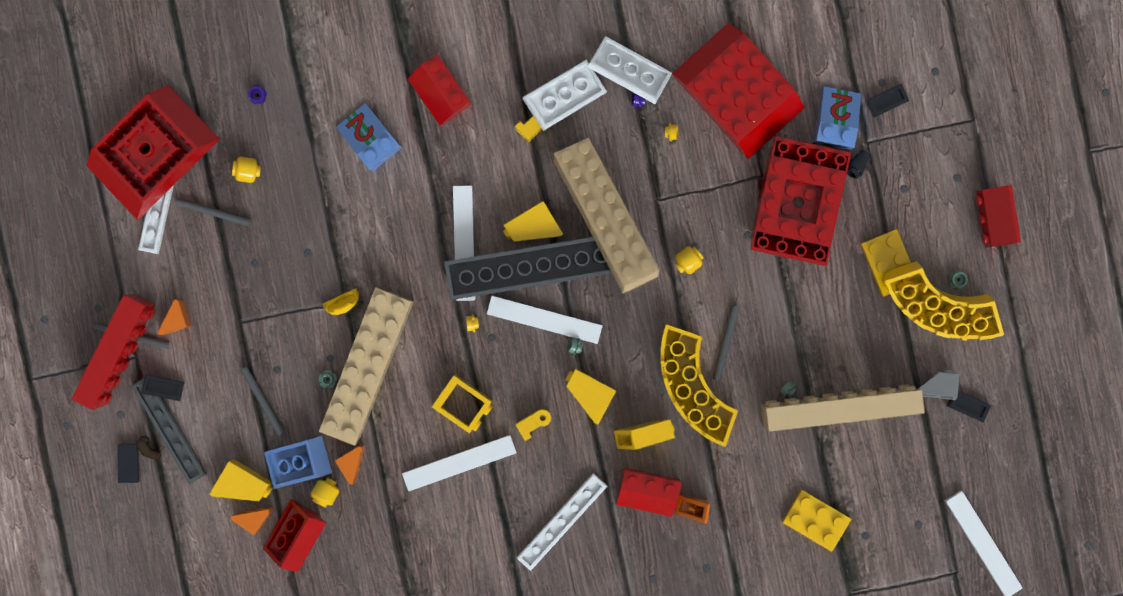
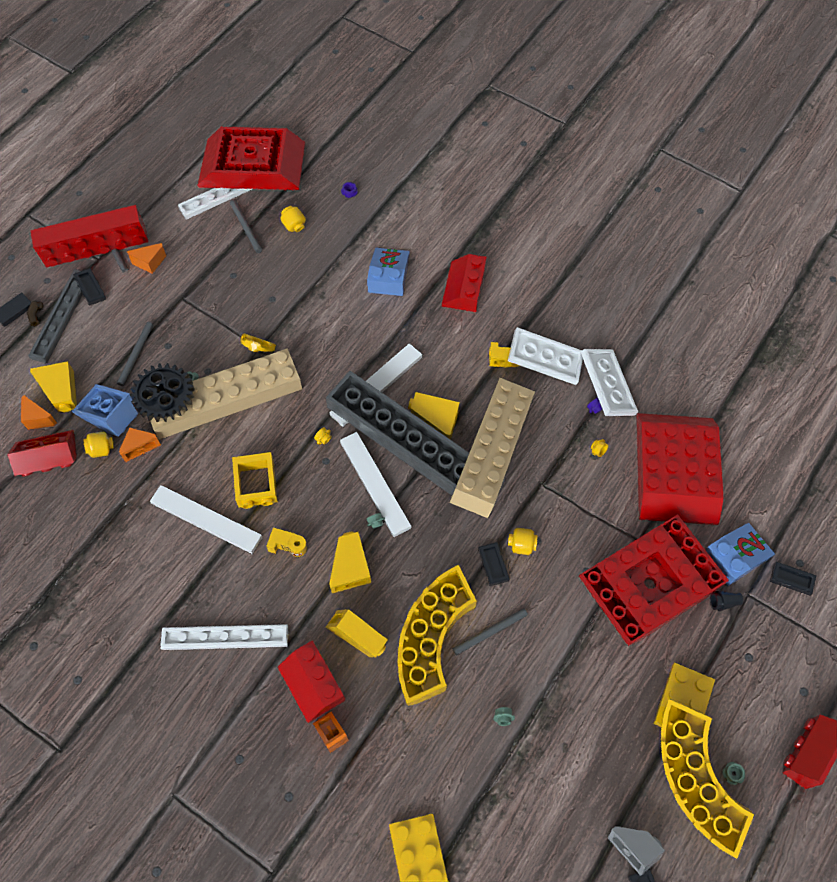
camera: 45 degrees right, 25 degrees down
(325, 401) = (162, 392): none -> black gear
(682, 294) = (493, 564): none -> black tile
(843, 408) = (535, 775): tan brick -> none

